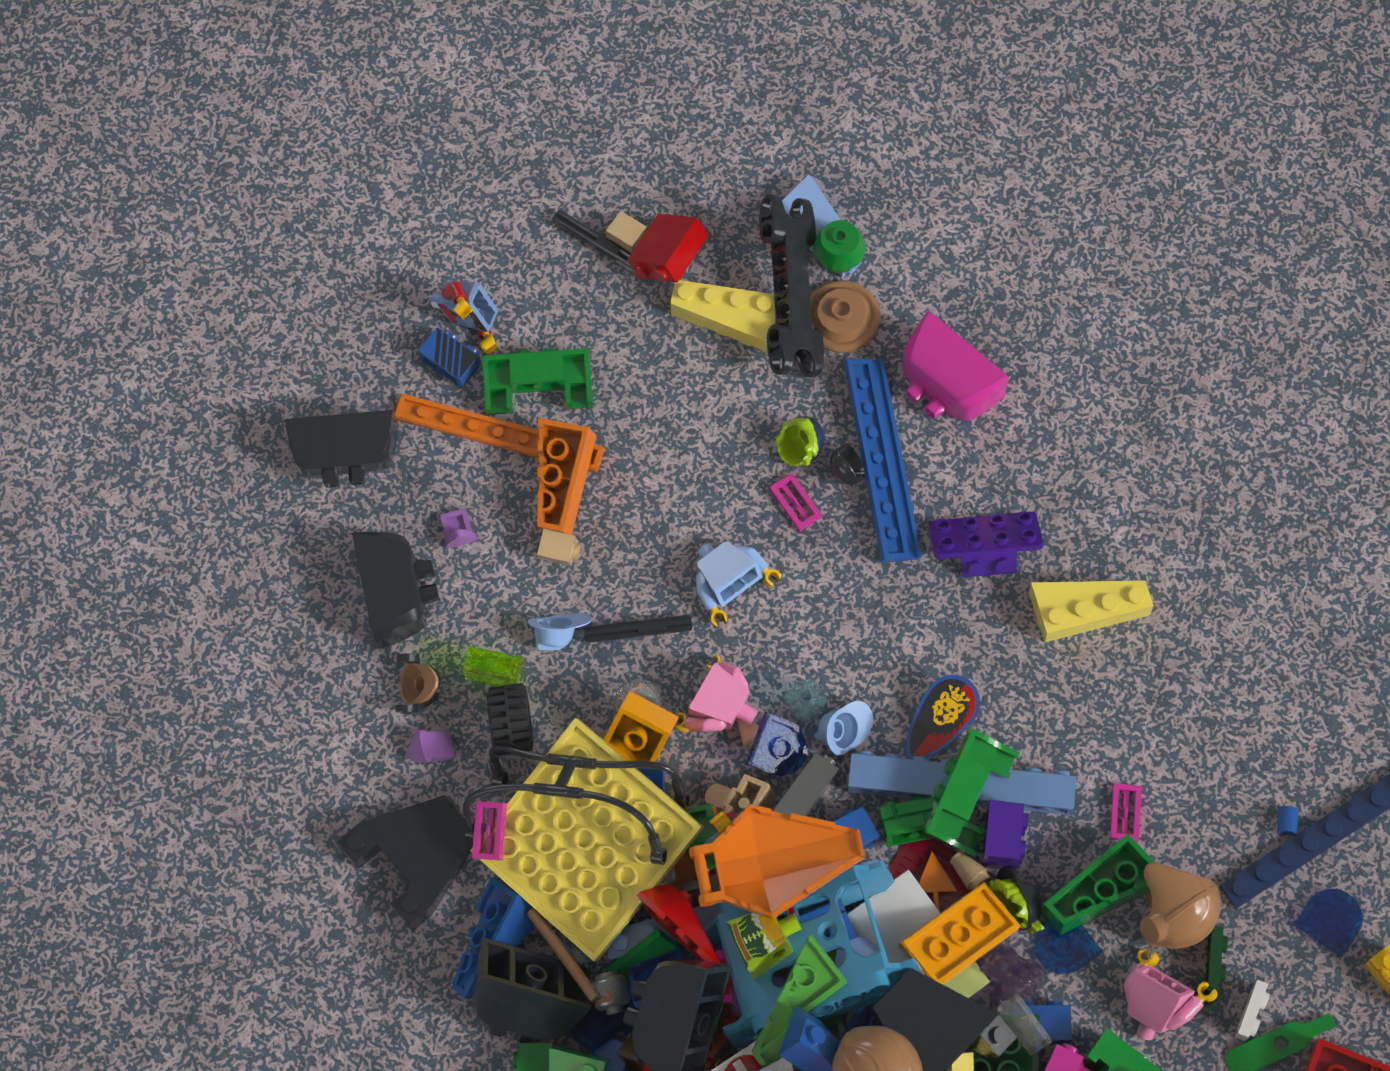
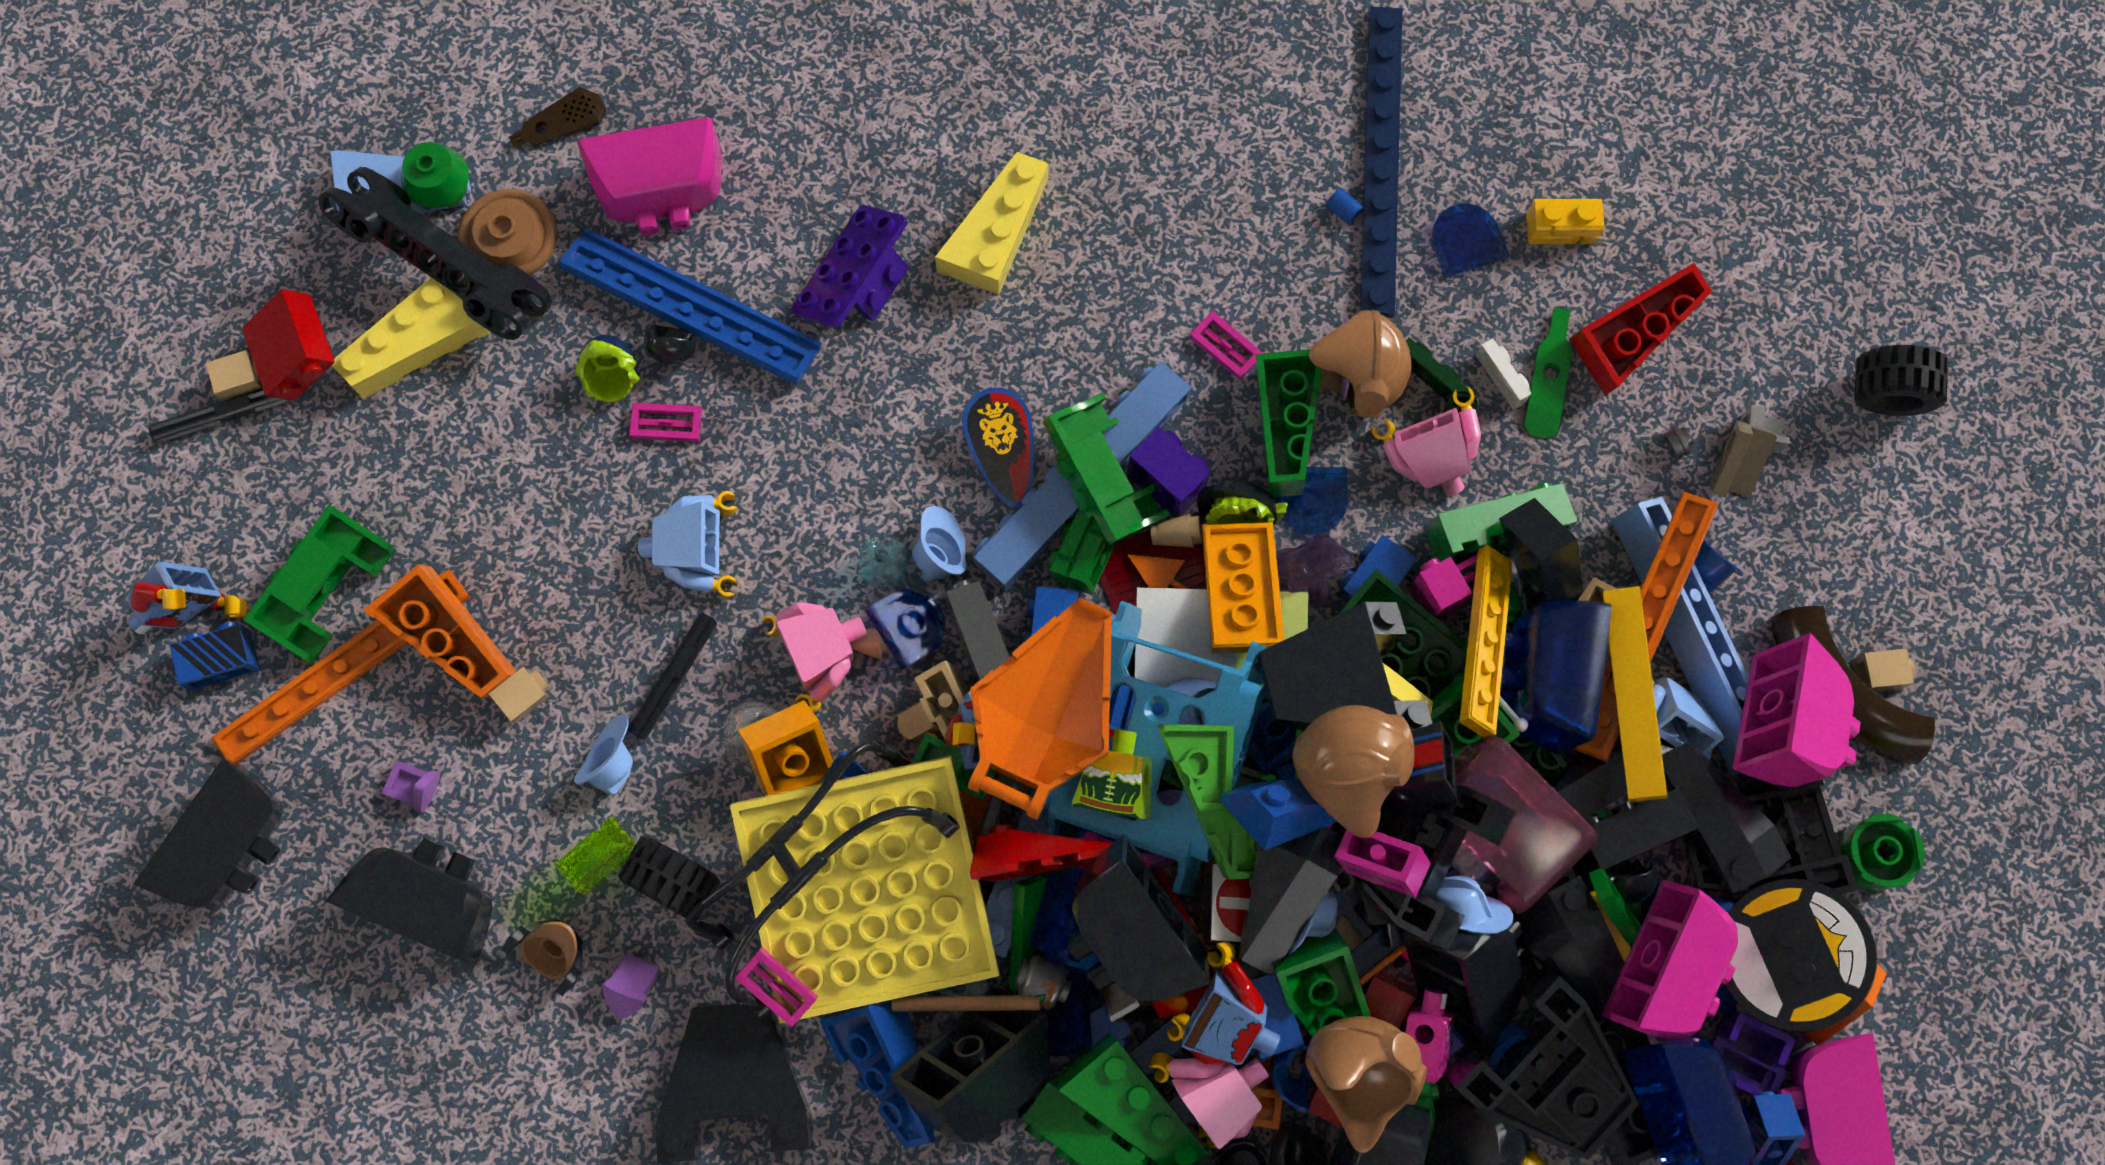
camera: 60 degrees left, 5 degrees up
(940, 286) = (556, 119): none -> dark brown piece
(1024, 1024) = (1378, 587): clear slope -> none

